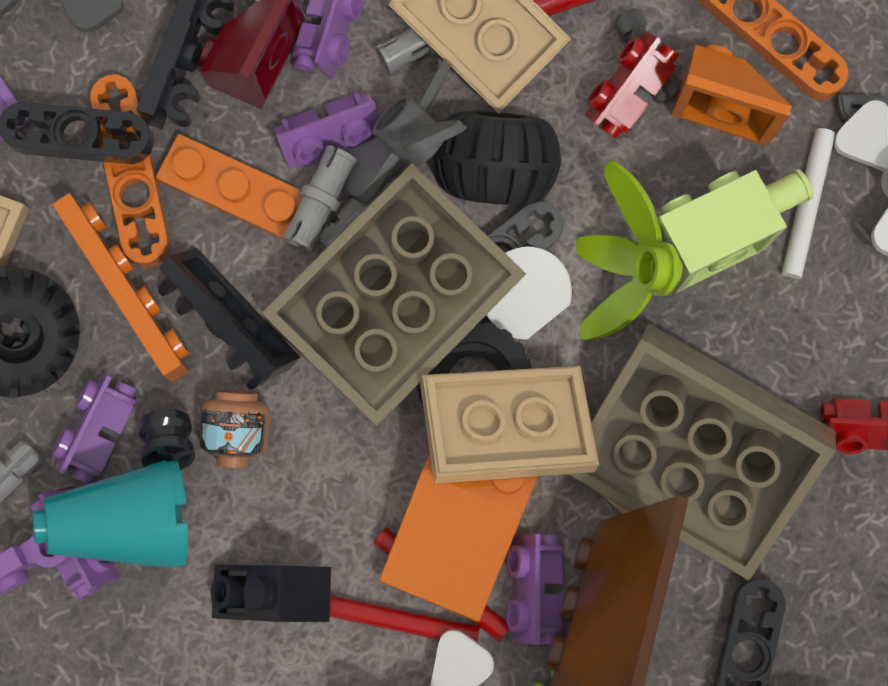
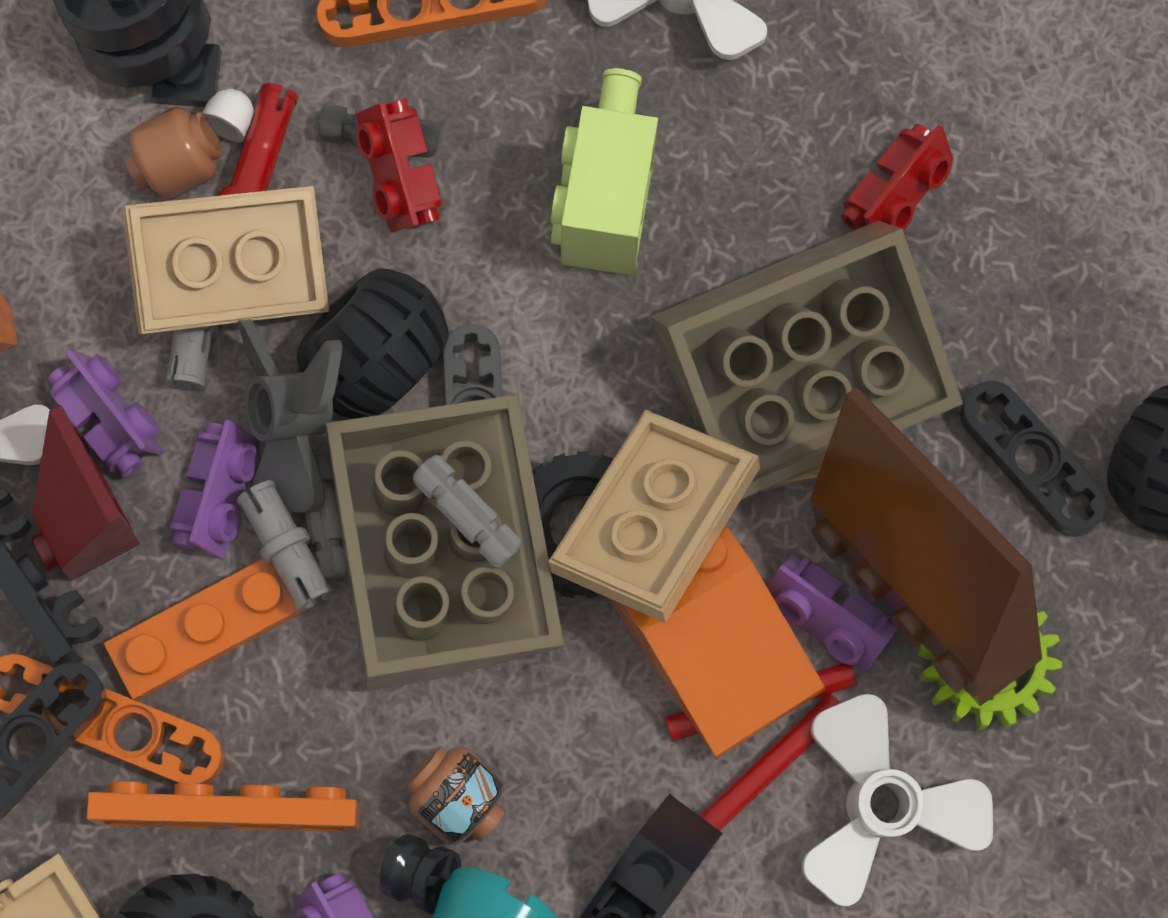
camera: 60 degrees left, 5 degrees down
(227, 315) = (334, 724): black plate -> none
(417, 296) = (467, 511): none -> light grey axle
(536, 297) = (544, 405): white sticker -> none
(651, 262) = (596, 268): lime plant -> none
(729, 96) = (481, 82): orange slope -> none
(807, 211) = (648, 99): white bar -> none

